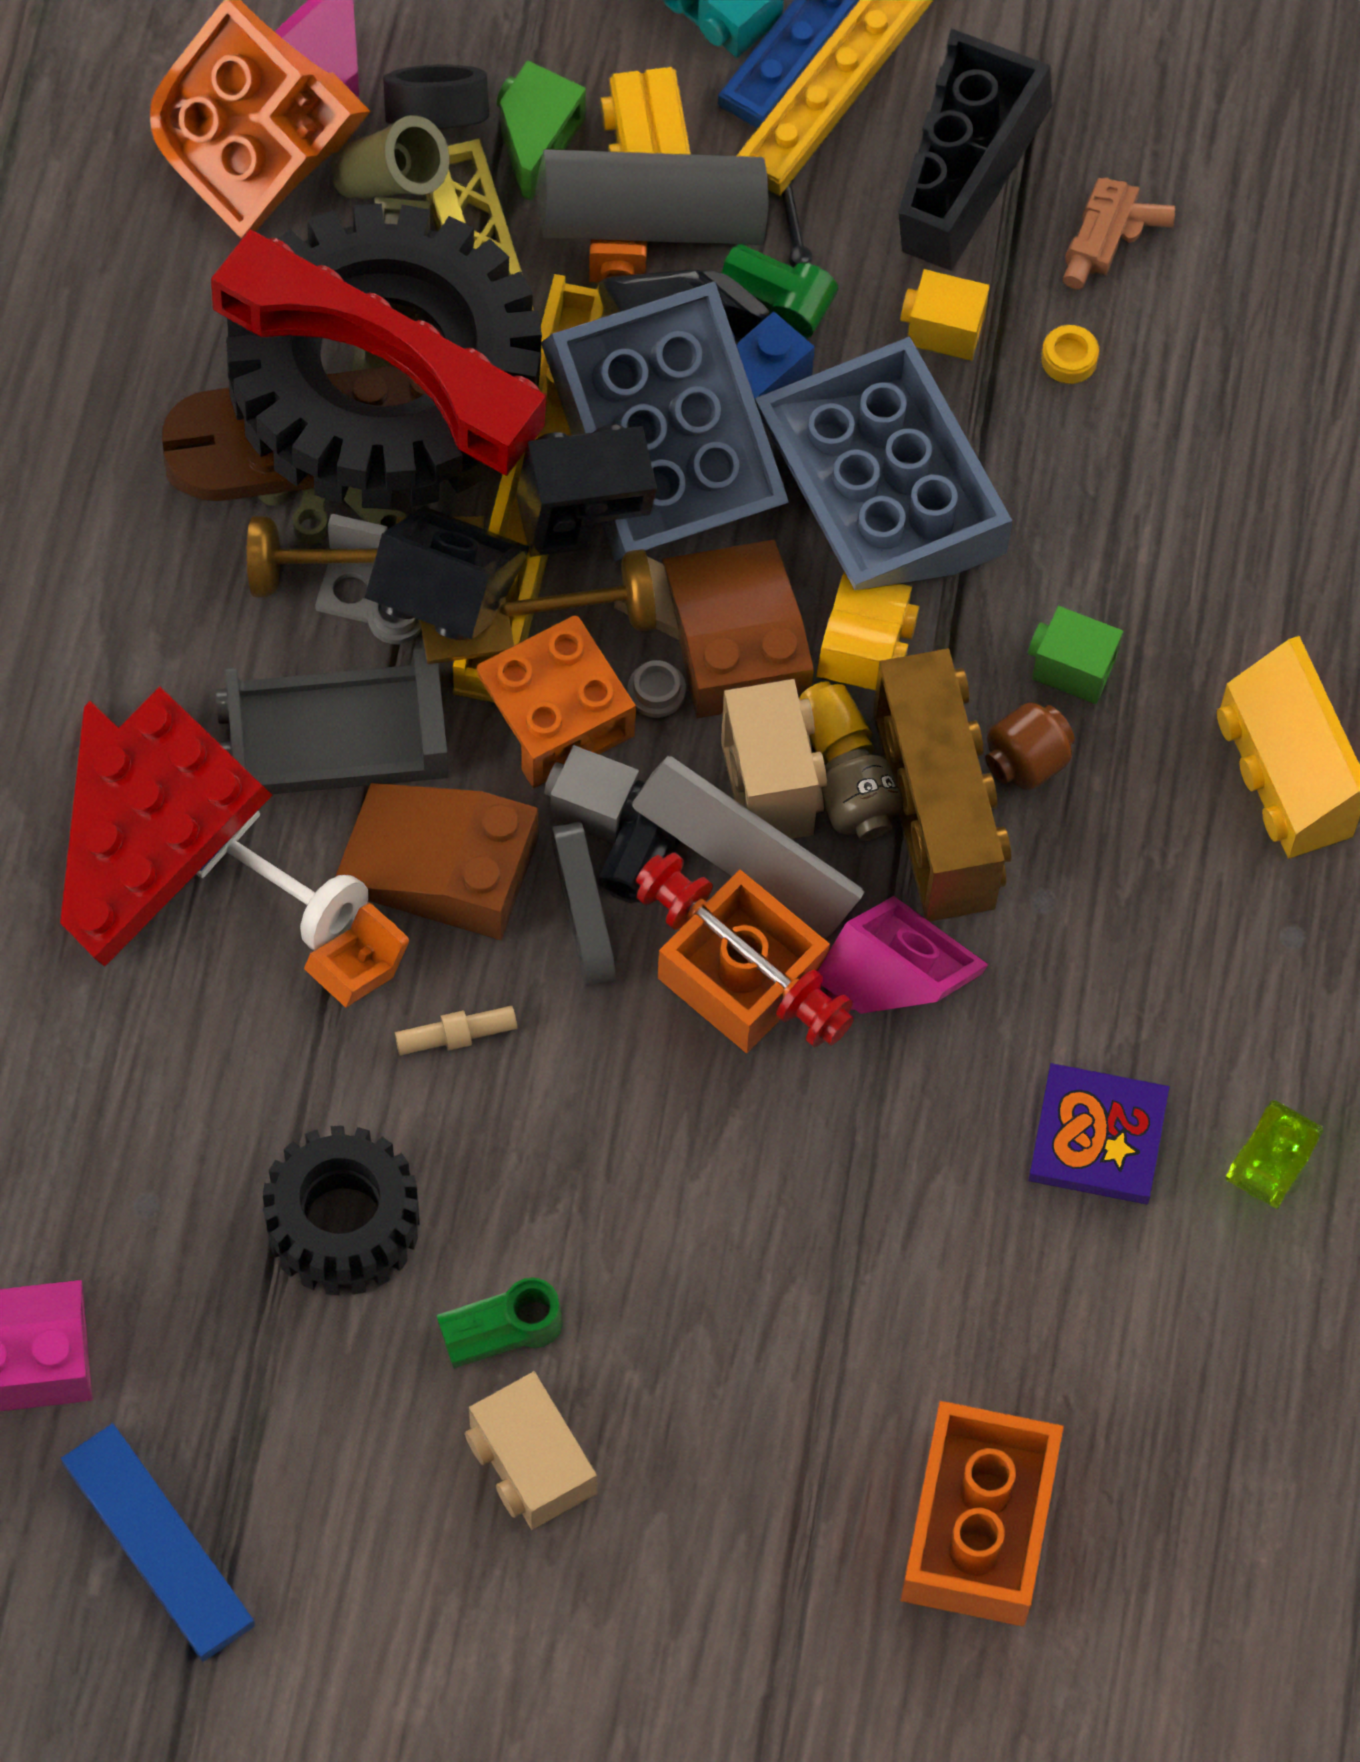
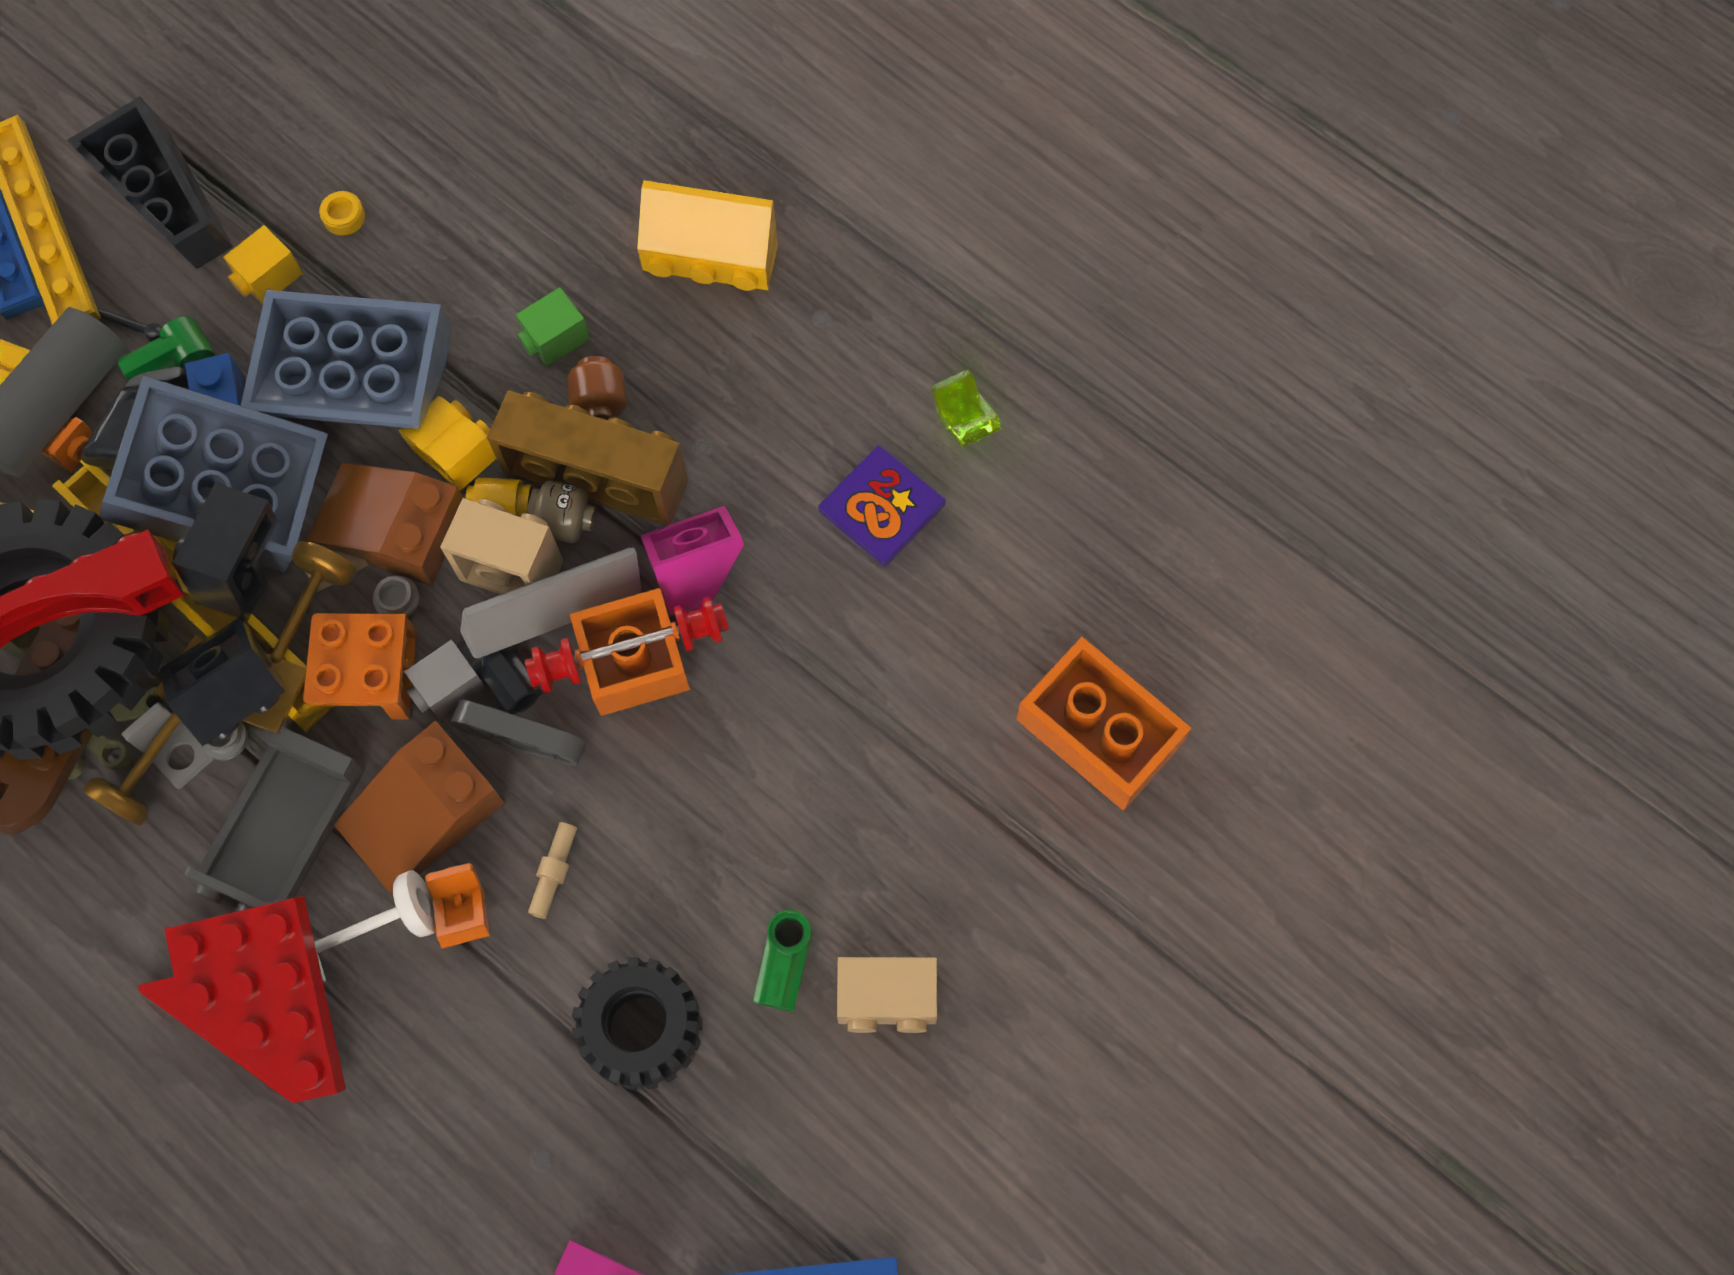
camera: 55 degrees left, 5 degrees up
(1107, 219) = (268, 137): nougat piece -> none

